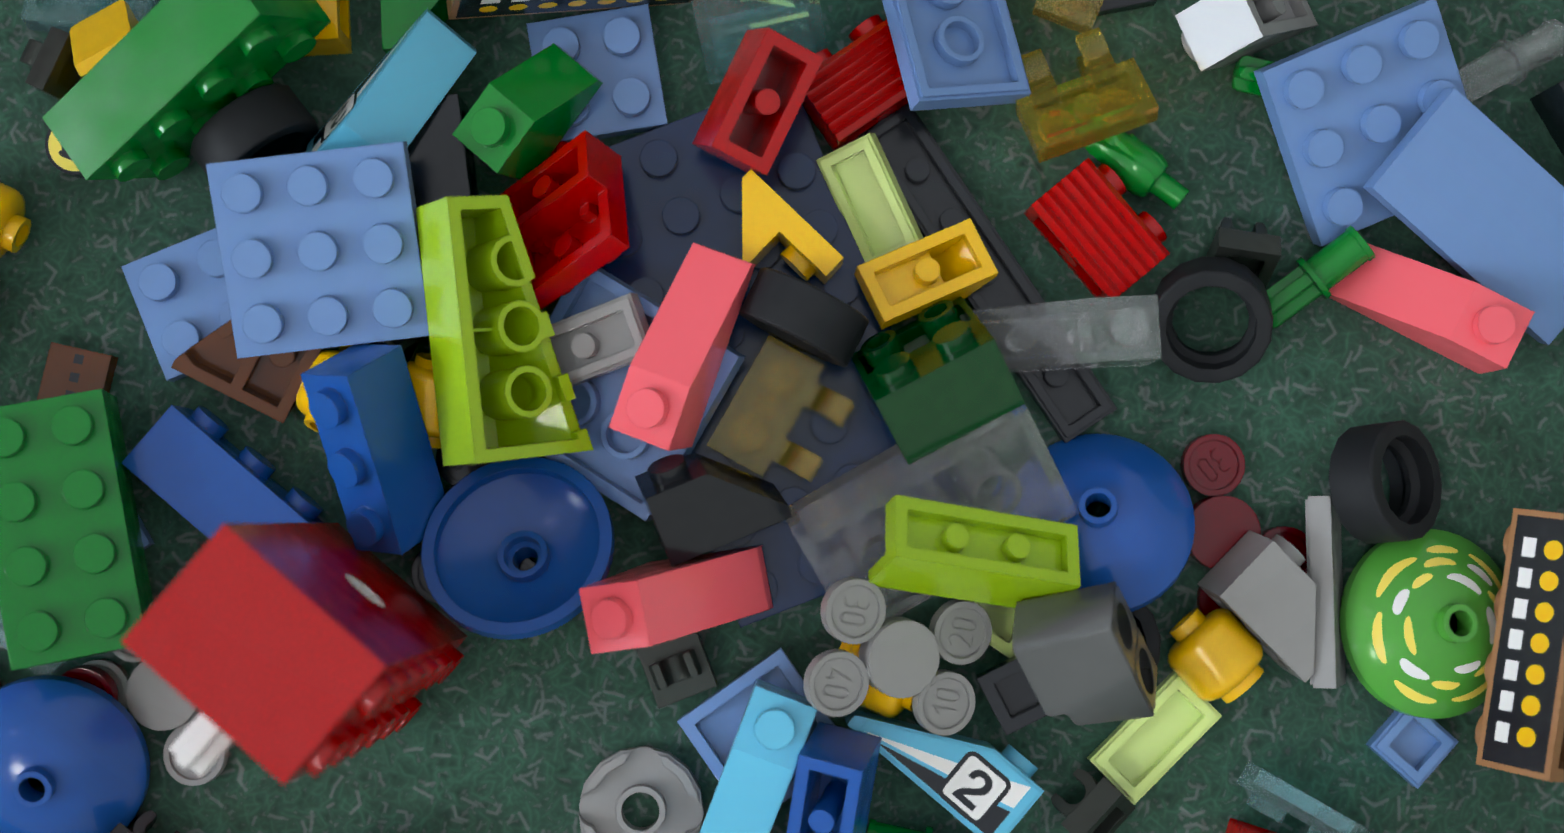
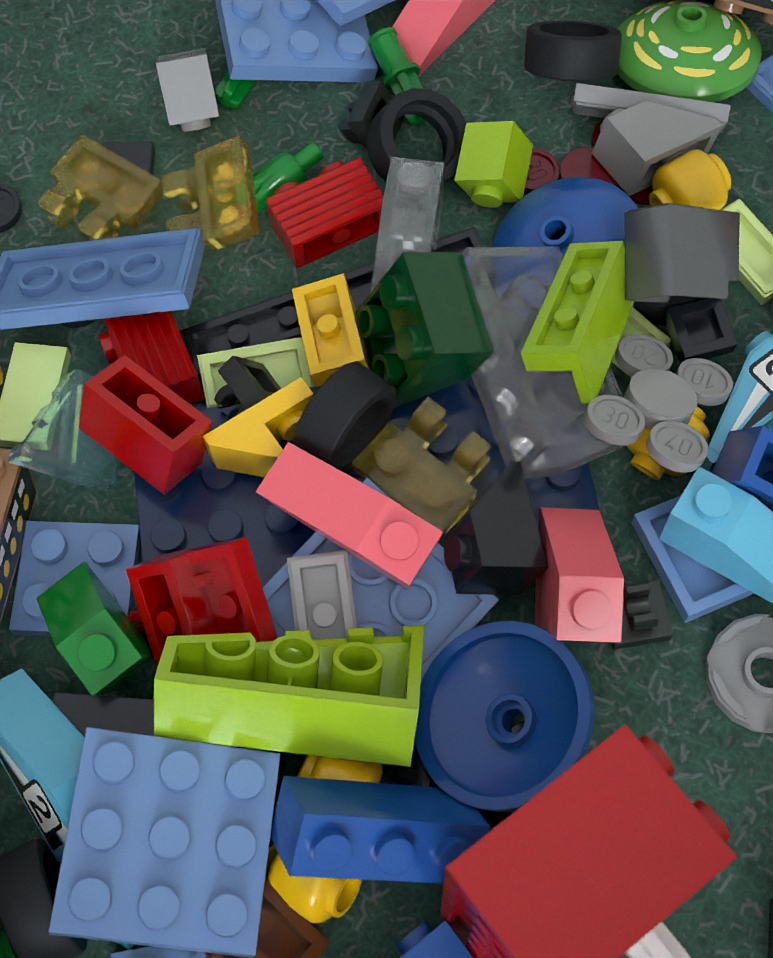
camera: 75 degrees left, 20 degrees down
(833, 204) = (245, 381): none -> pearl dark grey tile
(1197, 415) = (493, 162): none -> lime brick

